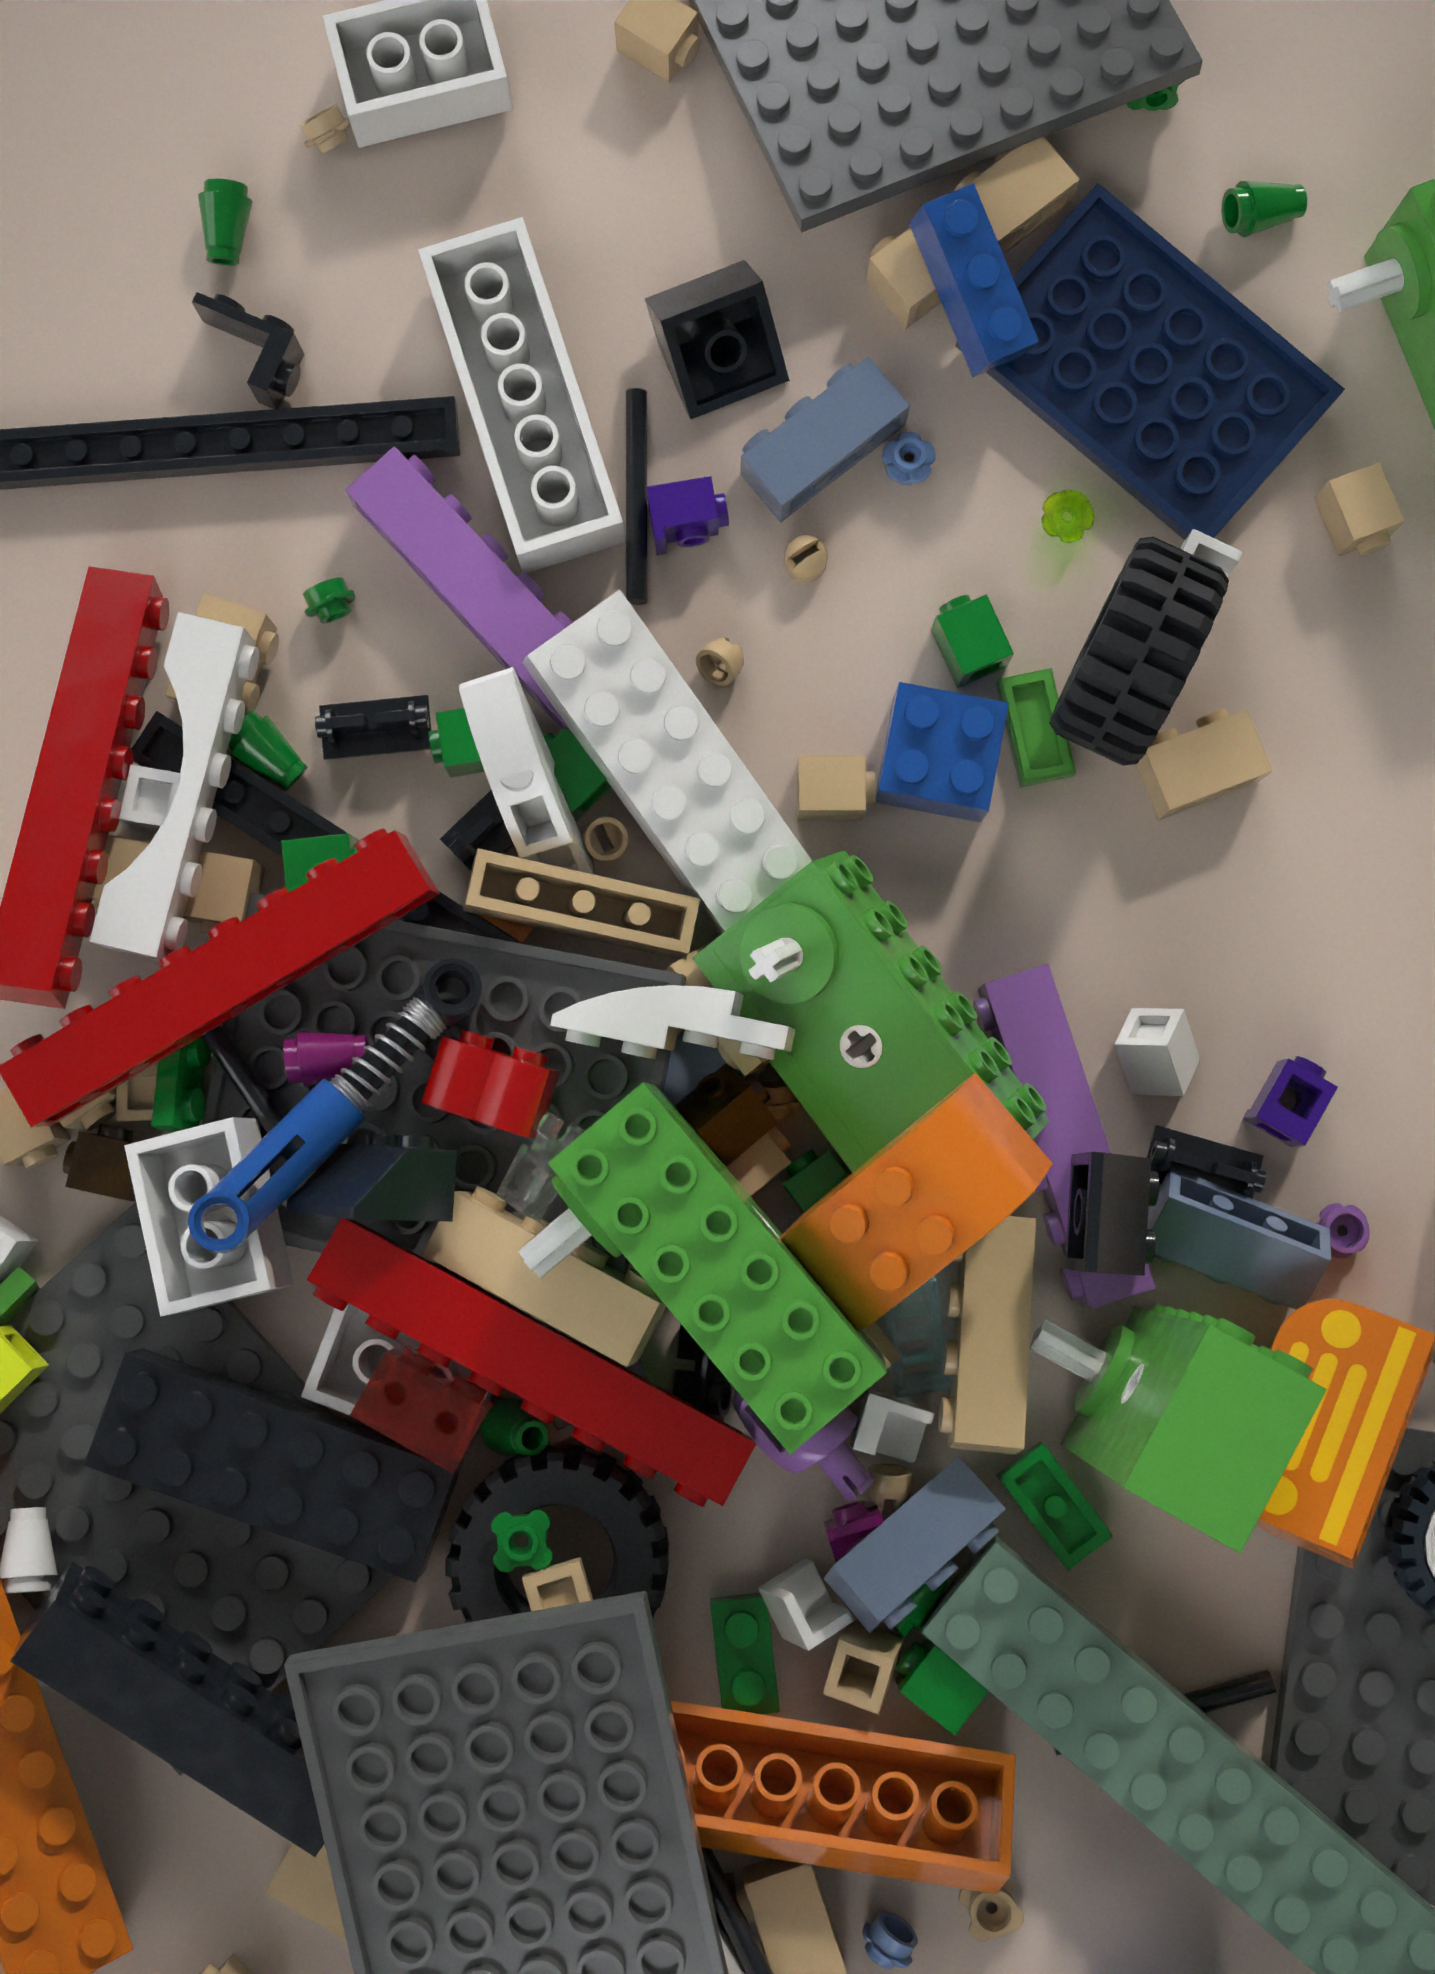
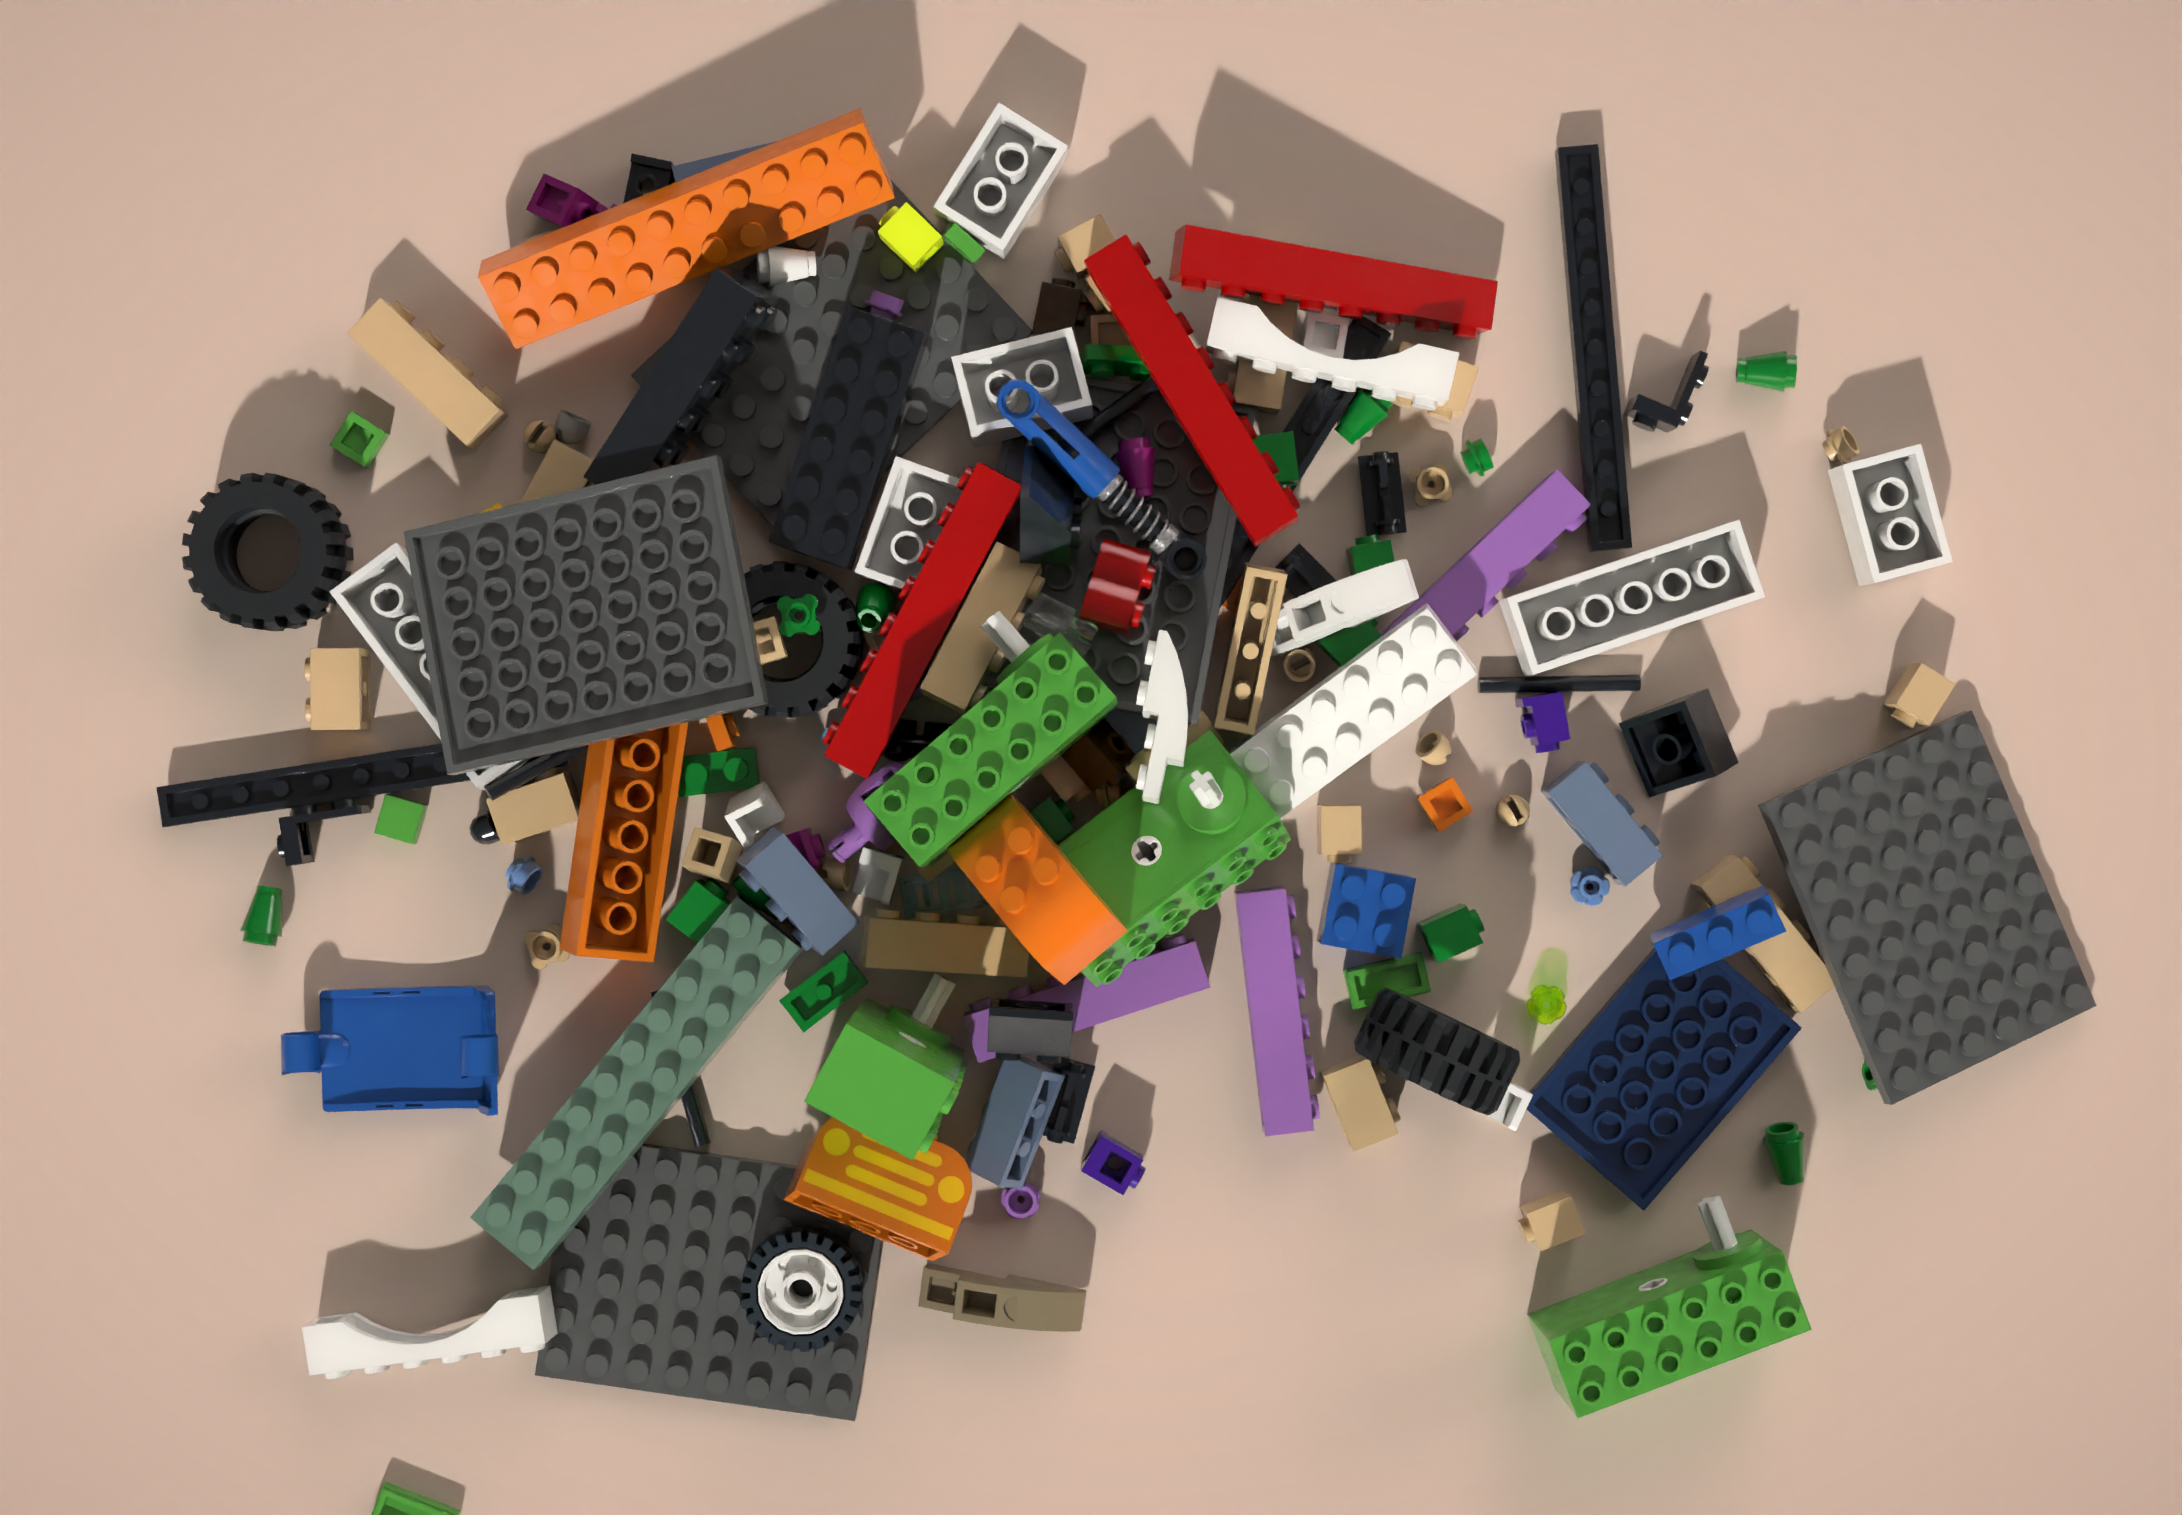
camera: 90 degrees right, 5 degrees up
(88, 1409) = (884, 305): none -> medium lavender plate
(251, 1863) = (571, 427): none -> light grey hinge
(266, 1905) = (544, 440): none -> tan hinge
(353, 650) = (1438, 475): none -> tan plate
(423, 1408) = (889, 544): clear red brick -> none
(685, 1647) = (723, 731): none -> orange plate
(797, 647) = (1444, 804): none -> orange plate
(1080, 876) = (1275, 1011): none -> medium lavender brick
(1157, 1051) = (1148, 1067): white panel -> none

